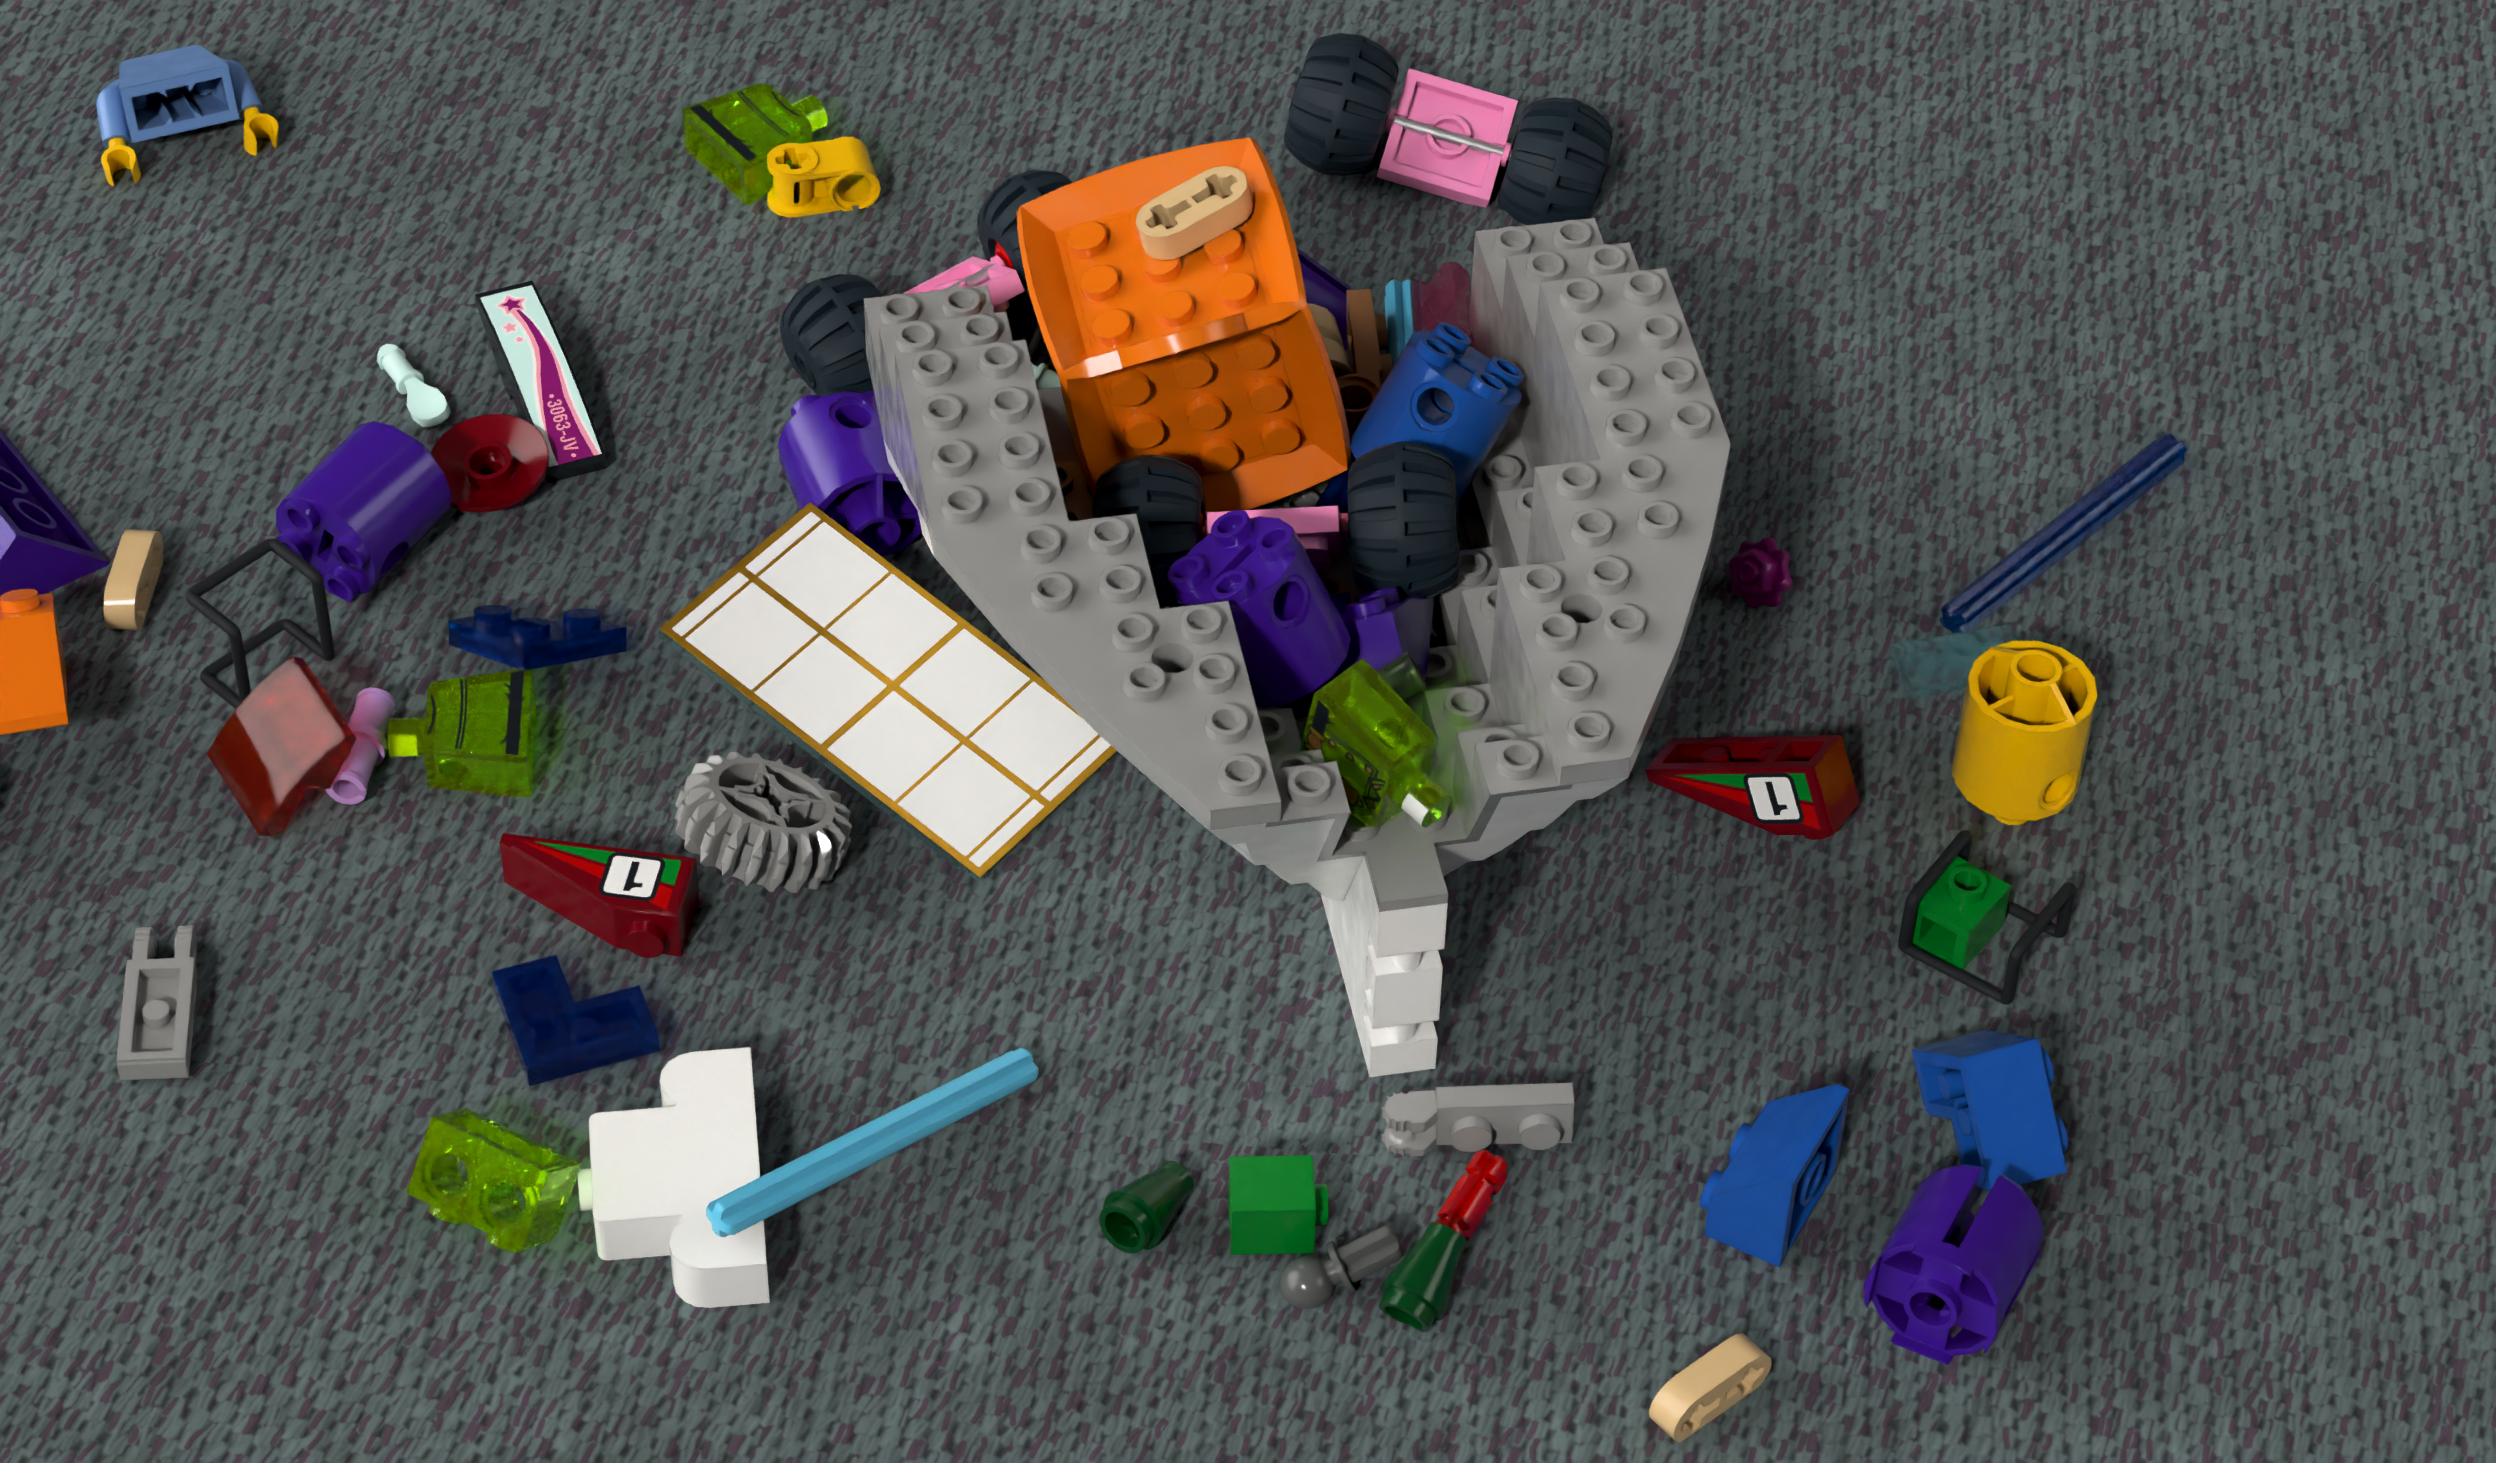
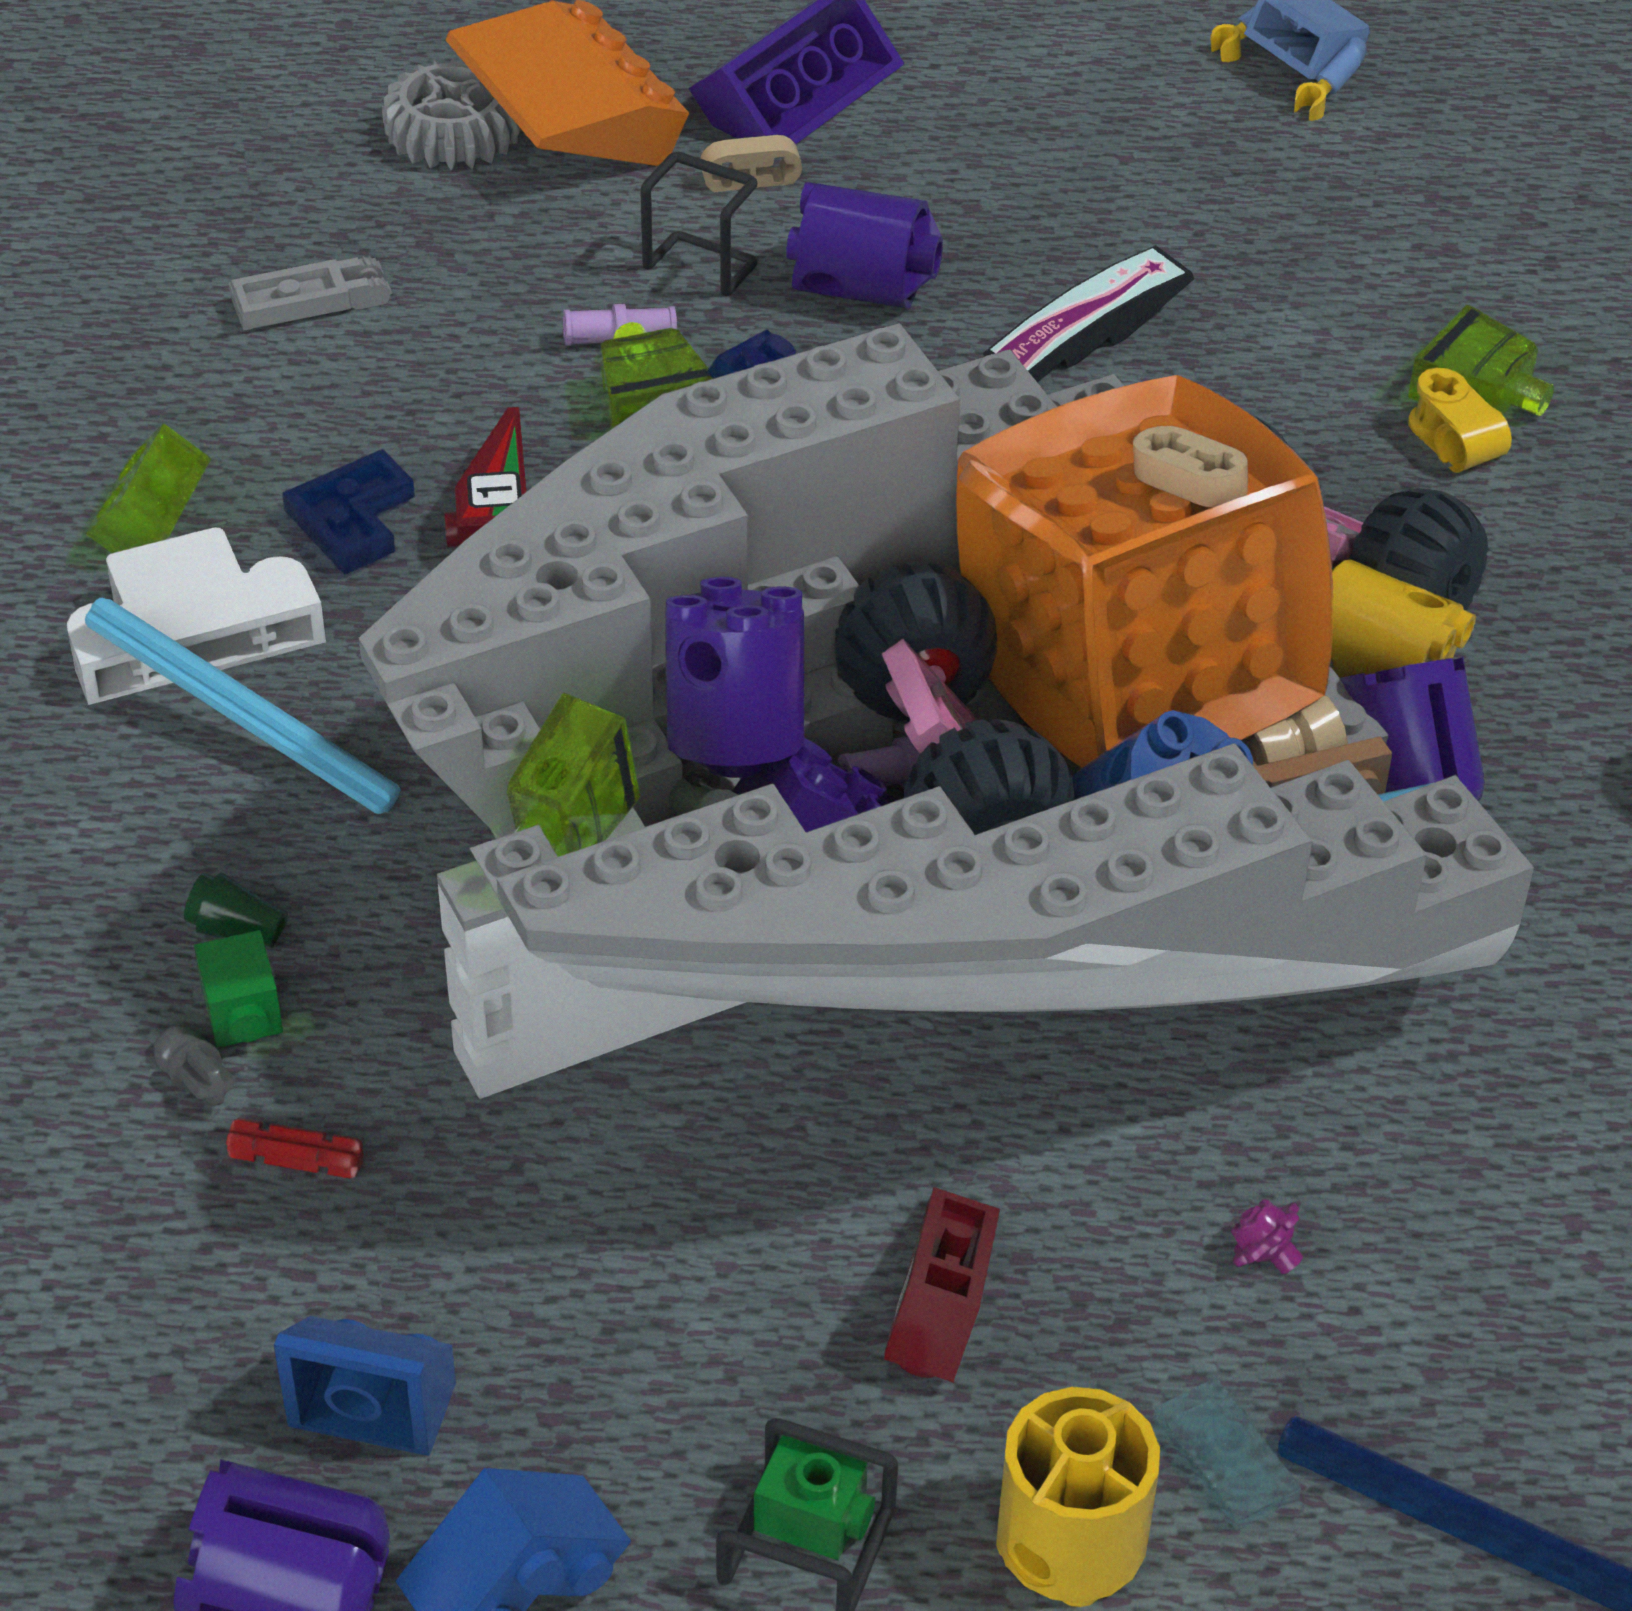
camera: 75 degrees right, 0 degrees up
(280, 745) = (581, 278): clear red slope -> none
(424, 402) = (1046, 268): light aqua piece -> none
(491, 461) = (970, 310): dark red dish -> none
(1423, 1280) = (177, 1121): dark green cone -> none
(1478, 1117) = (396, 1127): light grey hinge -> none
(1709, 1386) = (94, 1377): tan beam -> none

